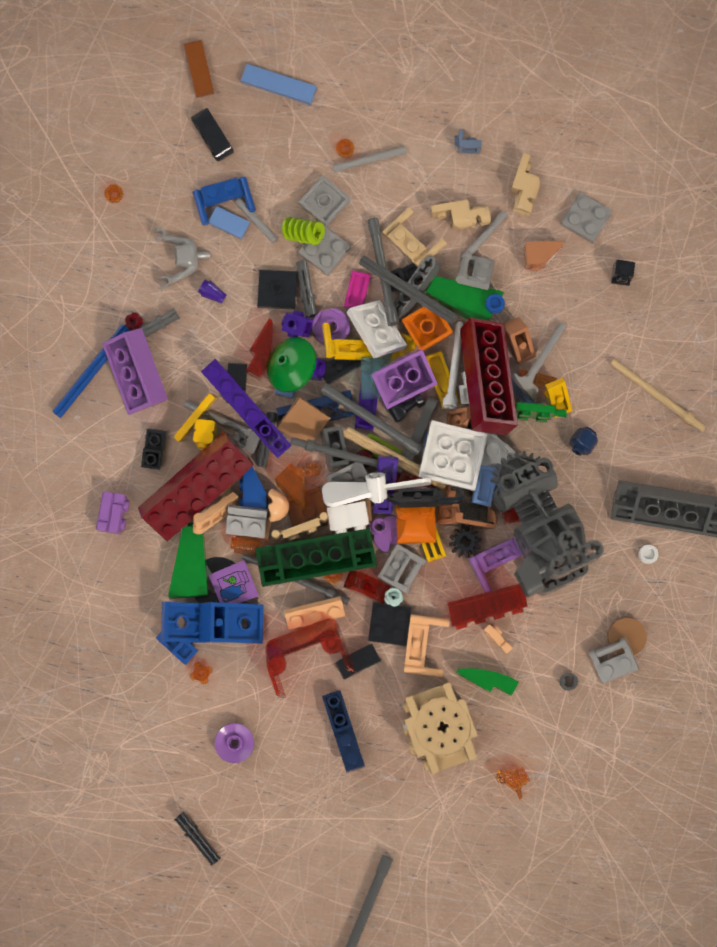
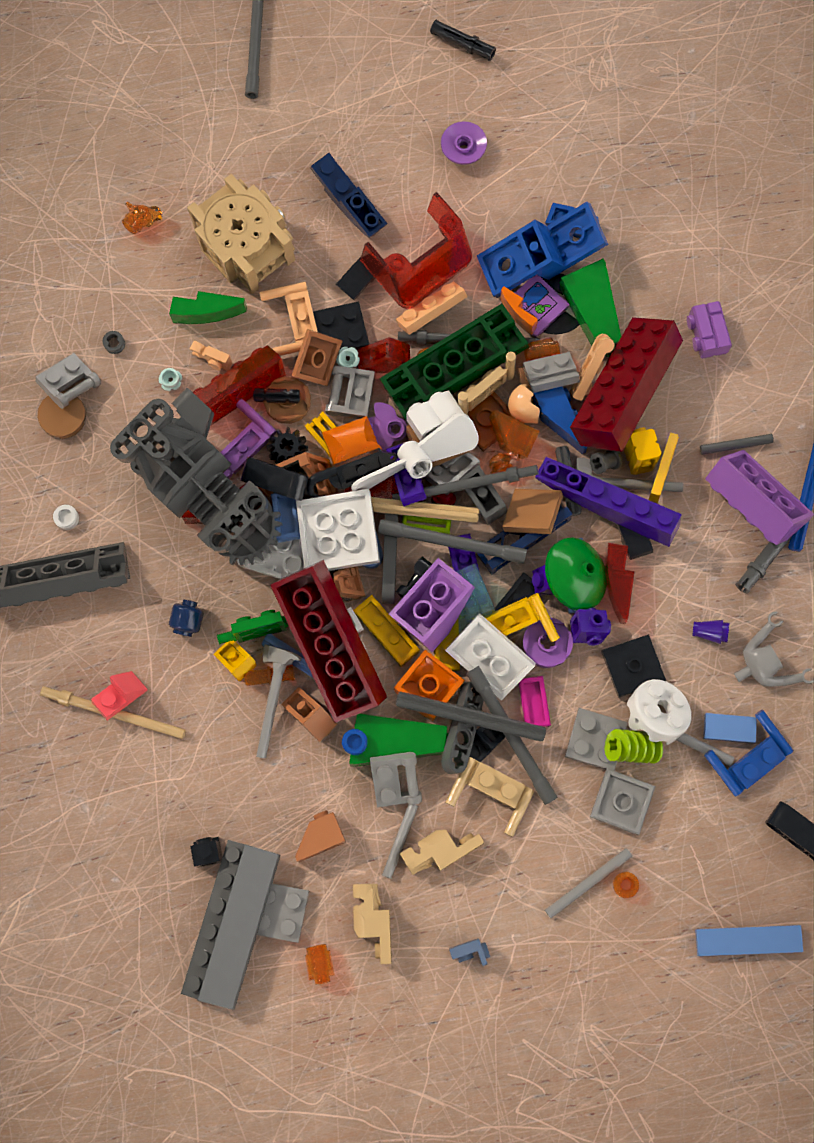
camera: 165 degrees right, 5 degrees down
(131, 420) = (736, 444): none -> dark grey bar
(138, 321) = (789, 565): dark red plate -> none
(153, 449) = (695, 421): black slope -> none
(204, 677) = (528, 207): clear orange plate -> none
(252, 585) = (514, 306): none -> orange slope
(285, 246) = (648, 717): none -> white plate
(310, 310) = (597, 678): dark grey pin -> none
(419, 603) = (317, 357): none -> nougat slope
(450, 400) = (366, 605): white piece -> none
(451, 583) = (289, 412): none -> medium nougat tile
(458, 585) = (276, 395): none -> black axle
(485, 511) = (275, 478): none -> black beam
(534, 638) = (169, 373): none -> light aqua plate
(570, 173) = (319, 964): none -> clear orange brick
(622, 218) = (230, 925): none -> dark grey slope
(649, 404) = (118, 695): none -> coral slope

